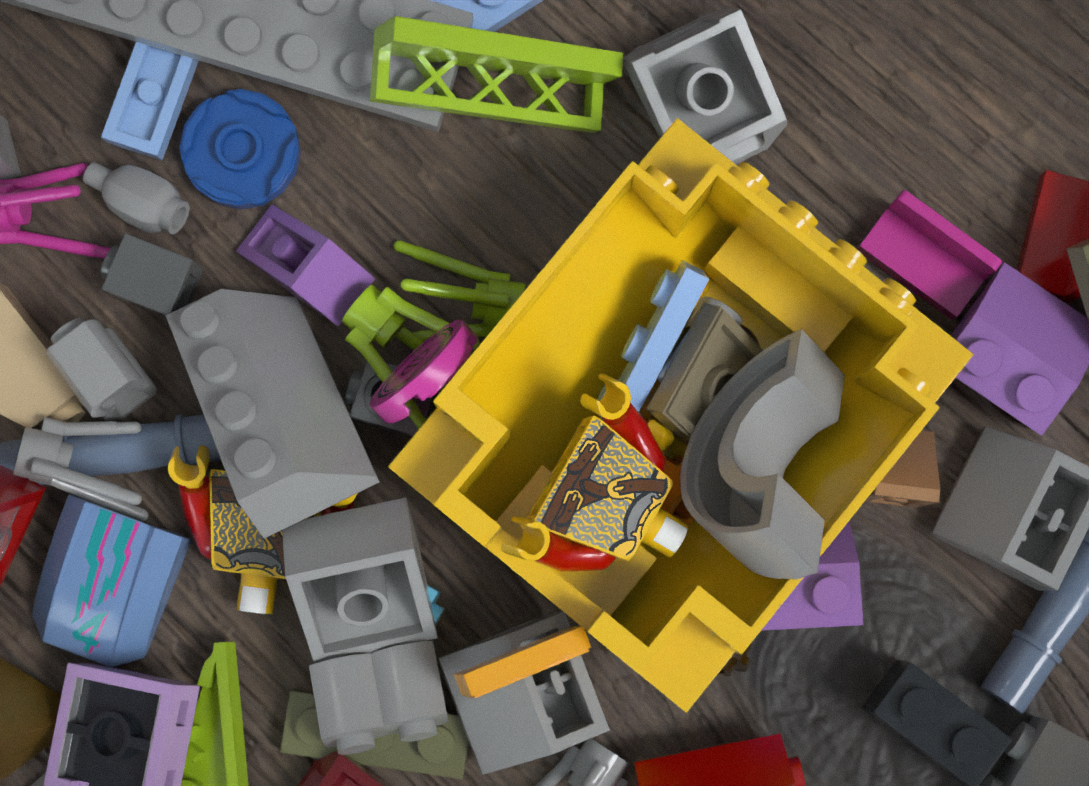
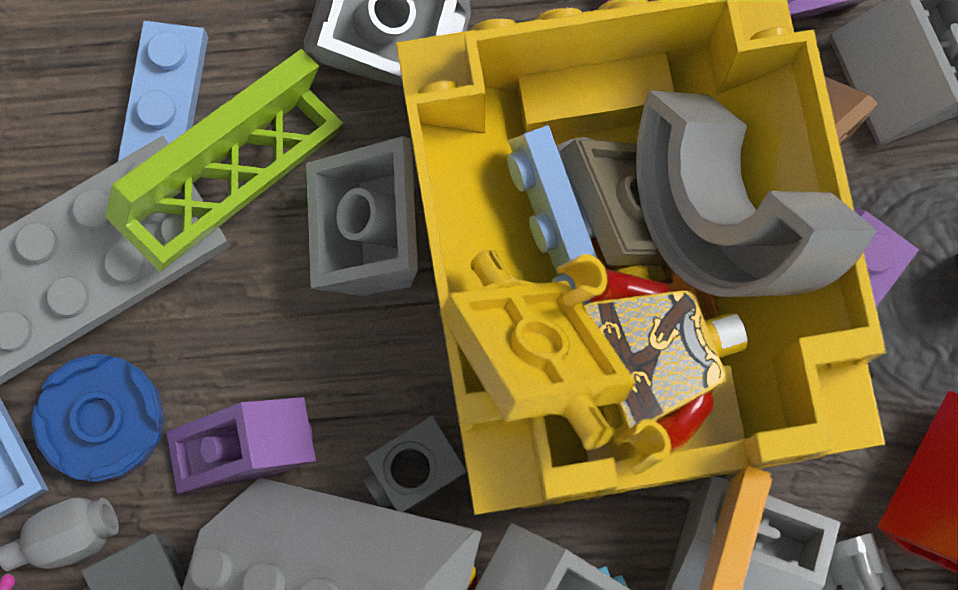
camera: 50 degrees left, 5 degrees down
(377, 319) = (340, 423): lime plant -> none
(424, 371) = (422, 415): dark pink tile -> none
(489, 299) = (404, 320): lime plant -> none
(528, 408) = (536, 350): none -> yellow plate
(532, 206) = (363, 219): none -> light grey slope

